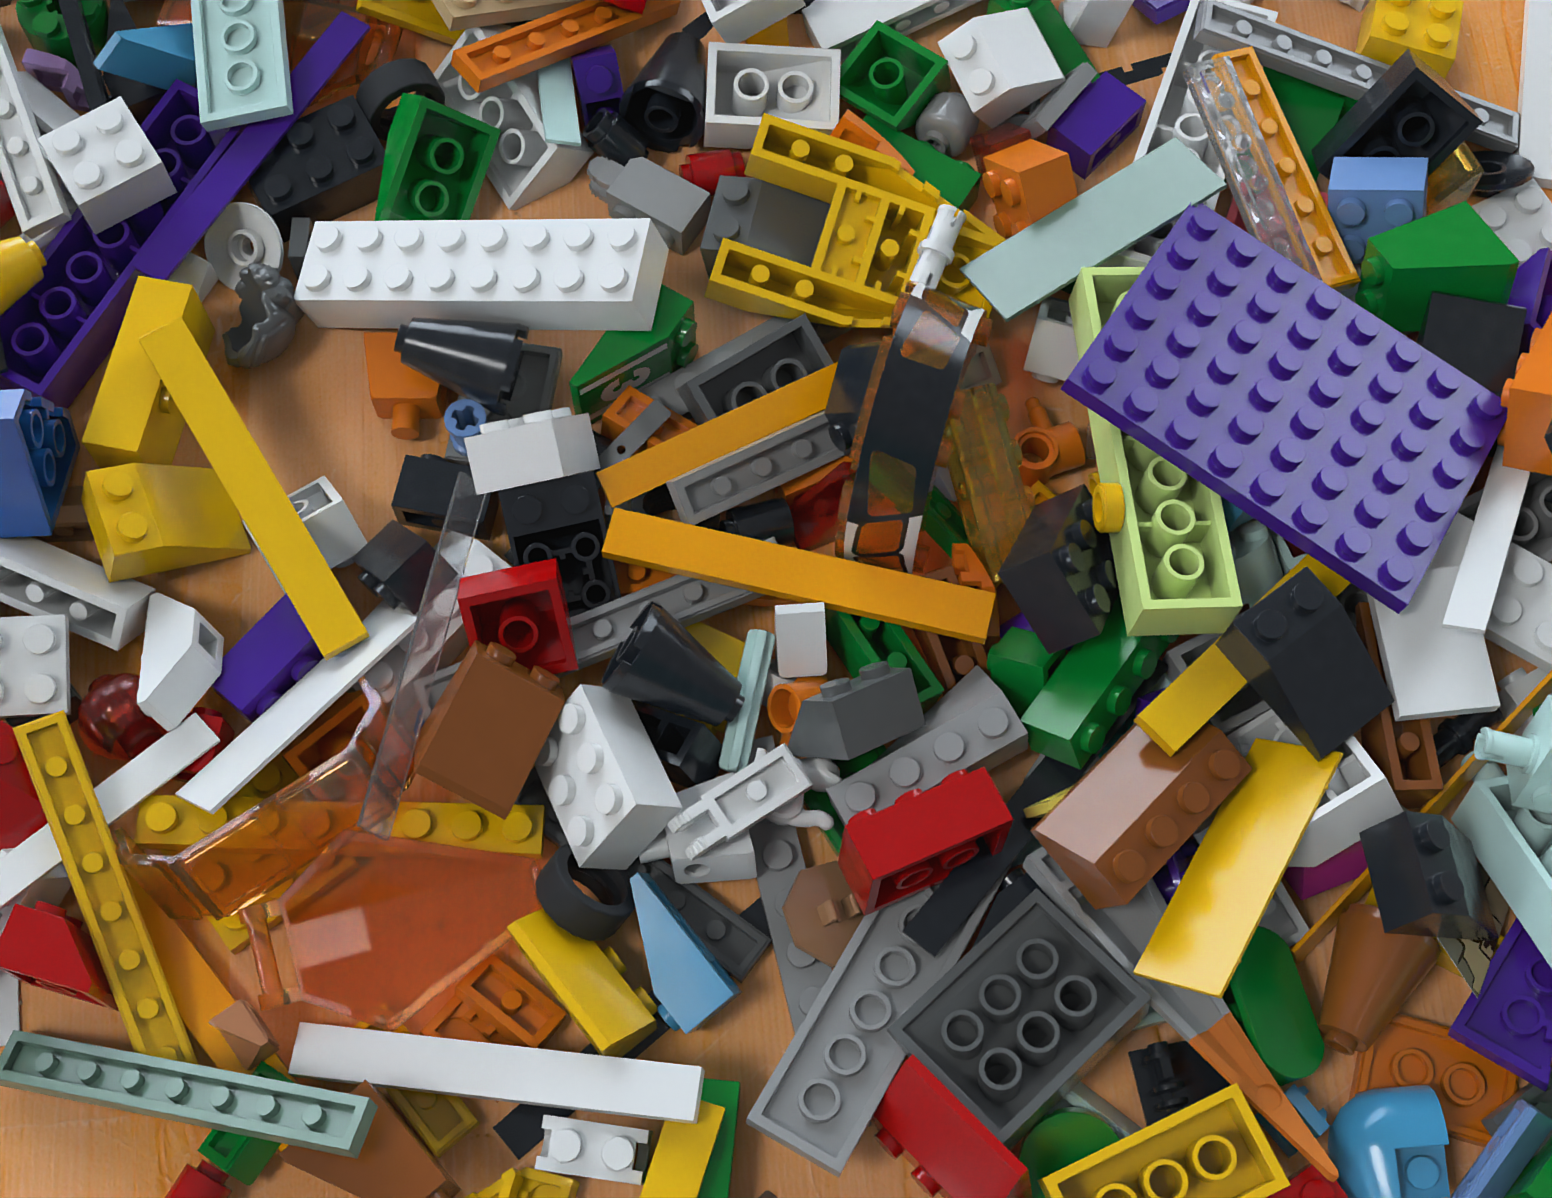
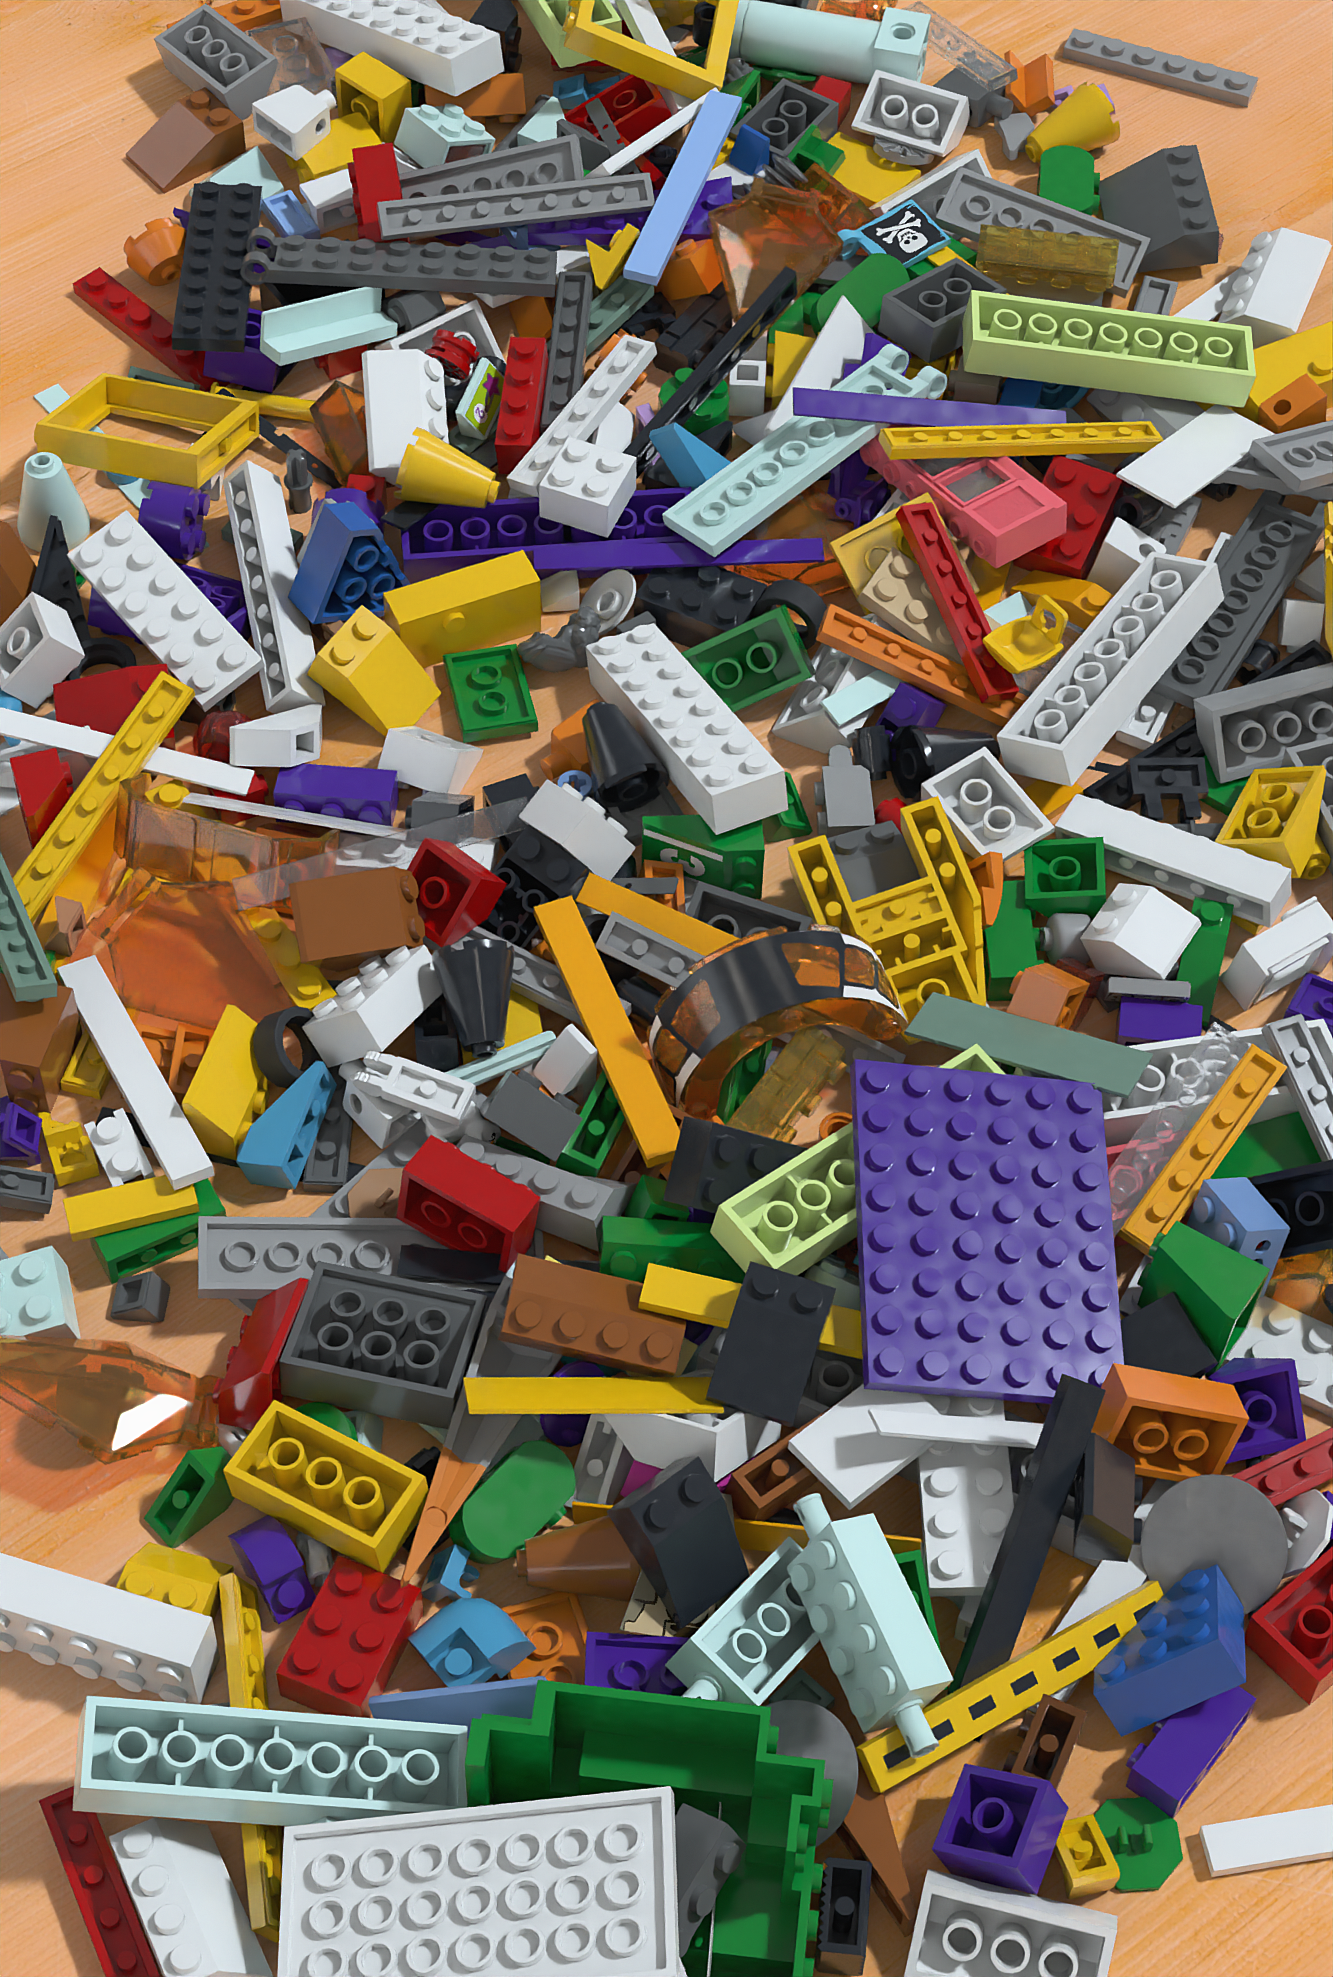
camera: 55 degrees right, 15 degrees down
(254, 489) = (423, 699): yellow tile -> none
(283, 420) = (490, 693): none -> green tile
(937, 249) = (929, 967): white pin -> none
(1108, 507) = (789, 1150): yellow tile -> none

